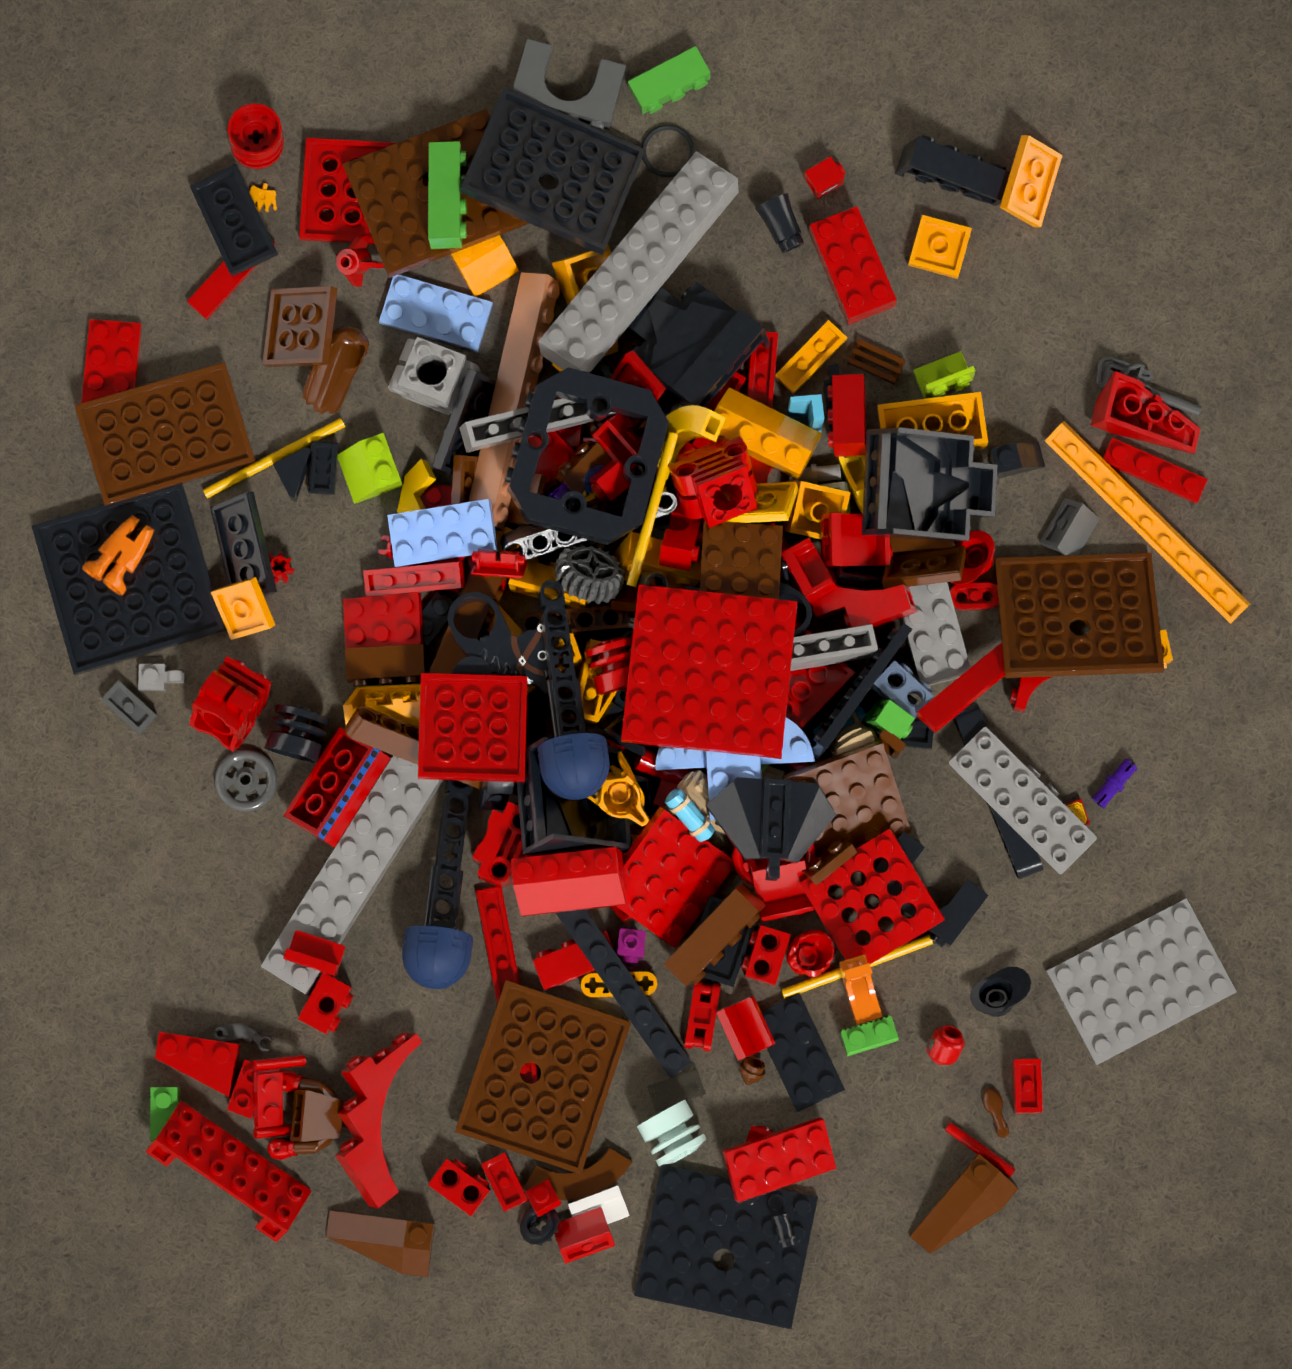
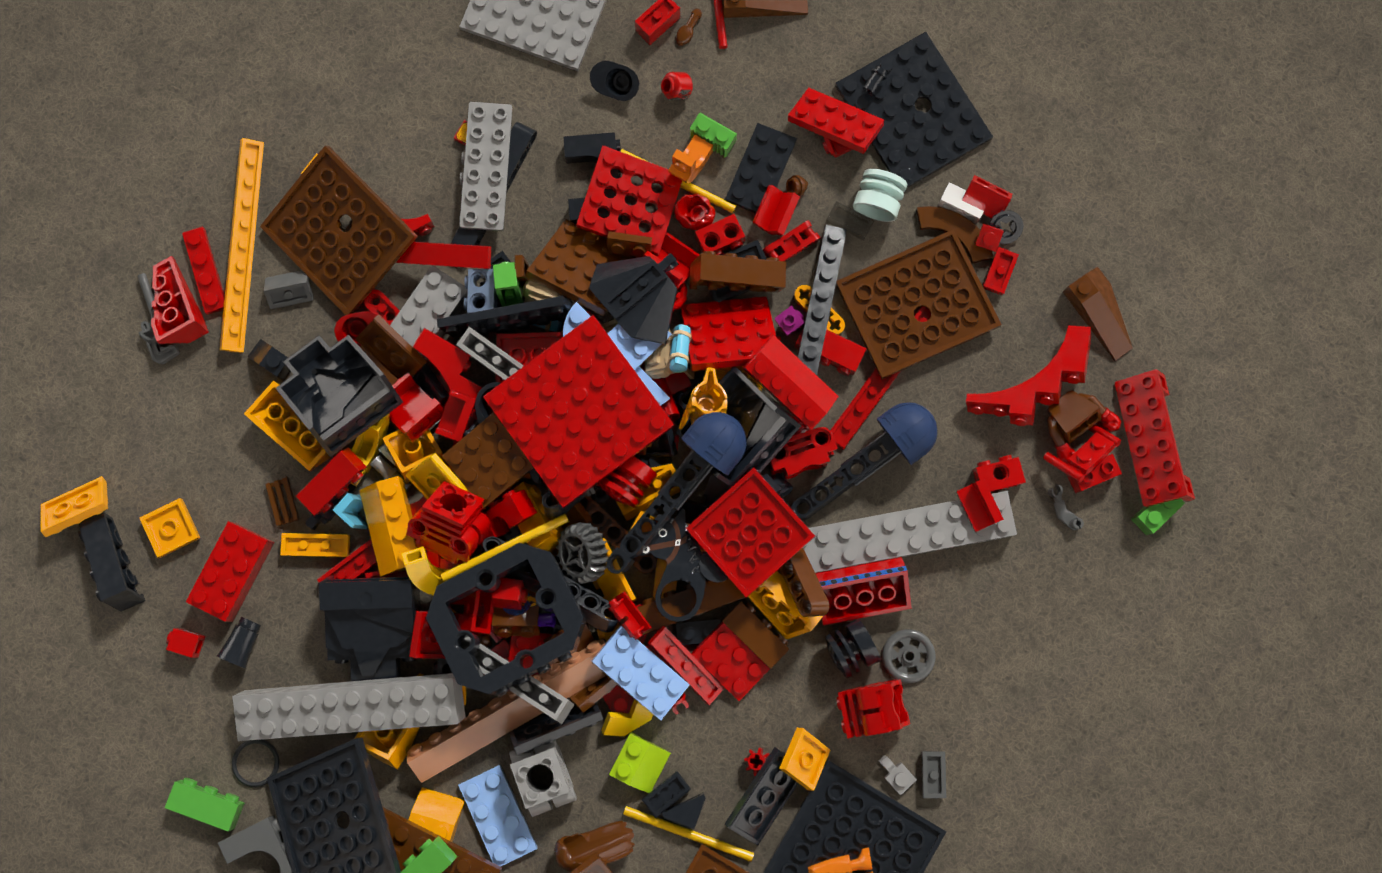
camera: 135 degrees left, 0 degrees up
(202, 1059) = (1105, 521): red wedge -> none
(455, 1192) = (1034, 294): red brick -> none
(944, 375) = (256, 452): lime bracket -> none
(1114, 783) = (426, 127): dark purple pin -> none

